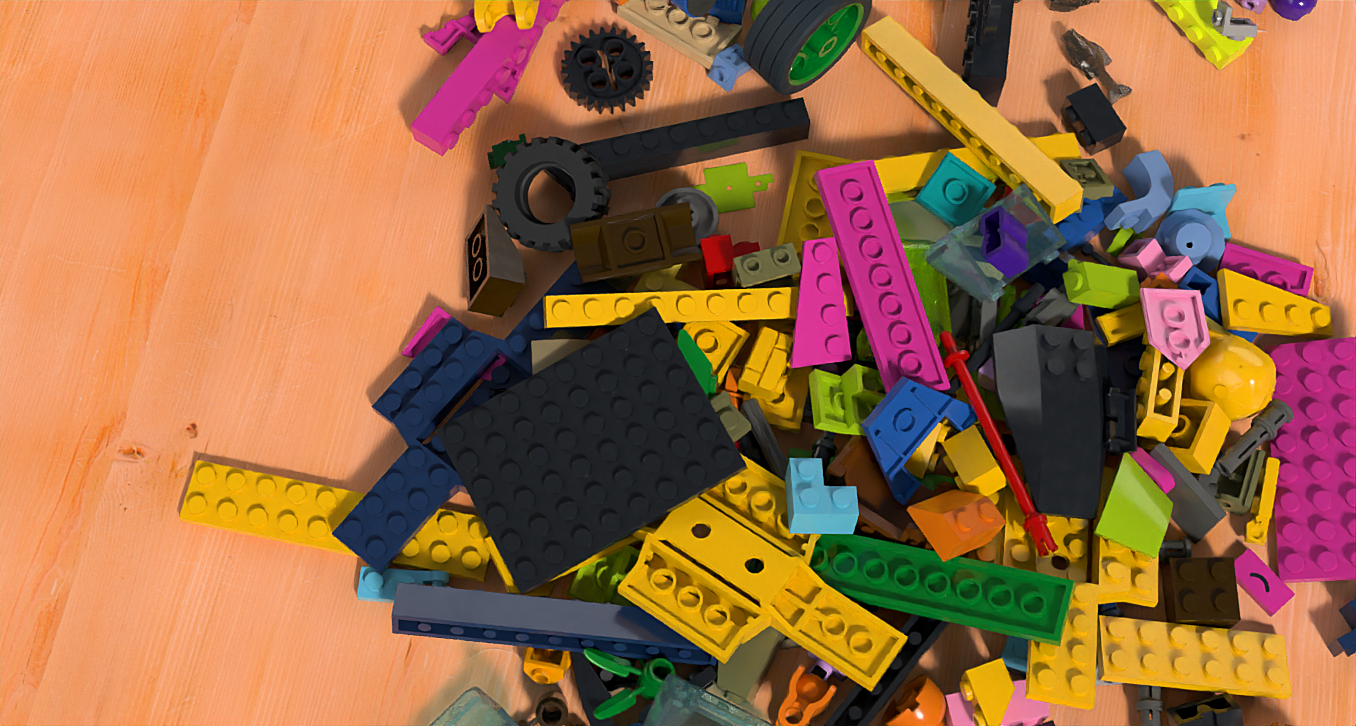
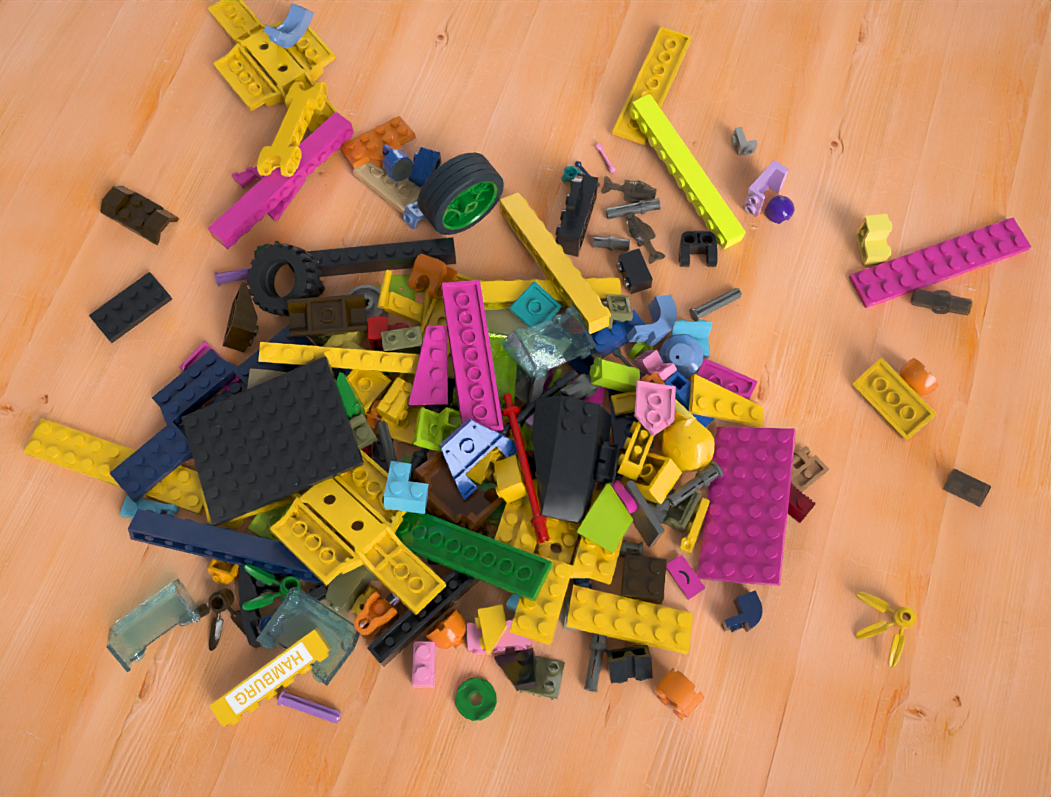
camera: 10 degrees right, 0 degrees up
(280, 115) = (136, 213): none -> dark brown piece
(302, 266) = (130, 307): none -> black plate
(463, 196) = (231, 276): none -> medium lavender axle
(631, 62) = (322, 211): black gear -> none
(743, 214) = (401, 305): none -> yellow plate
(776, 678) = (357, 607): none -> yellow piece
(779, 151) = (430, 271): none -> orange piece
(957, 522) = (488, 515): orange slope -> none
(1004, 241) = (554, 341): dark purple brick -> none
(1045, 79) = (611, 243): none -> dark grey pin
(1080, 18) = (639, 207): none -> dark grey pin
(1182, 70) = (698, 246): none -> black piece
(1223, 157) = (715, 304): none -> dark grey axle
(1233, 28) = (732, 223): light grey bracket -> none

